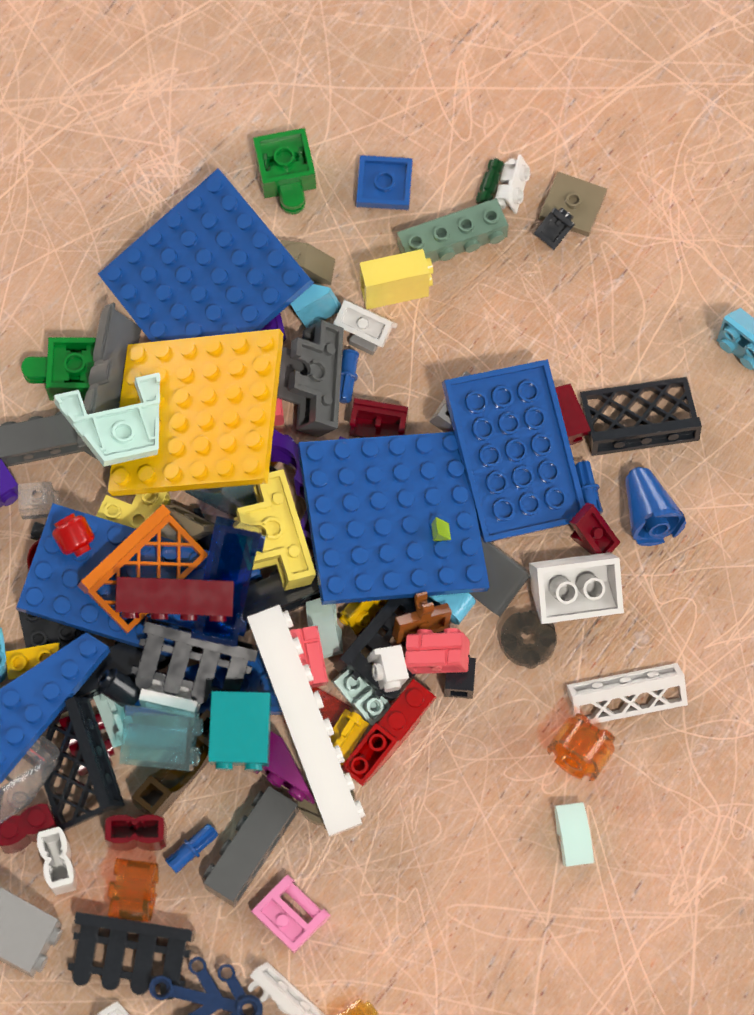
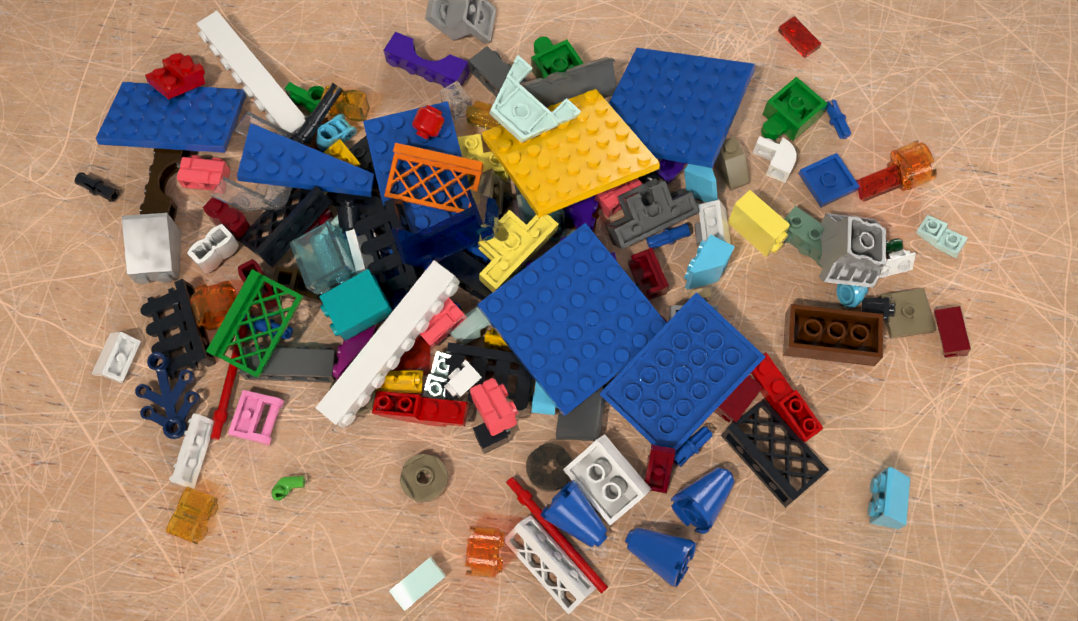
camera: 60 degrees right, 0 degrees up
(79, 478) = (479, 115): none -> clear yellow panel
(169, 863) = (240, 310): none -> green fence
(174, 596) = (420, 206): dark red brick -> none
(196, 104) = (799, 37): none -> clear red plate
(264, 952) = (220, 415): none -> red bar
(323, 130) = (837, 120): none -> blue axle
(330, 210) = (781, 157): none -> white brick
(386, 919) = (285, 485): none -> bright green arm
(406, 352) = (708, 263): none -> medium azure slope
(422, 137) = (880, 183): none -> clear red plate
(423, 95) = (914, 164): none -> clear orange brick
(426, 617) = (514, 383): dark orange plate -> none
(433, 384) = (705, 293): none -> tan tile
(440, 530) = (583, 355): lime piece -> none
(465, 787) = (429, 465): none -> dark tan plate
(484, 209) = (852, 250): none -> light grey slope
(513, 120) = (937, 234): none -> light aqua slope
(521, 240) = (850, 295): none -> medium azure brick
(546, 680) = (525, 498): none -> red bar
(556, 285) = (833, 335): none -> reddish brown brick
(593, 639) = (575, 515): none -> blue cone
(598, 371) = (785, 400): none -> red slope
(619, 175) = (952, 332): none -> dark red hinge
(680, 579) = (662, 553): none -> blue cone

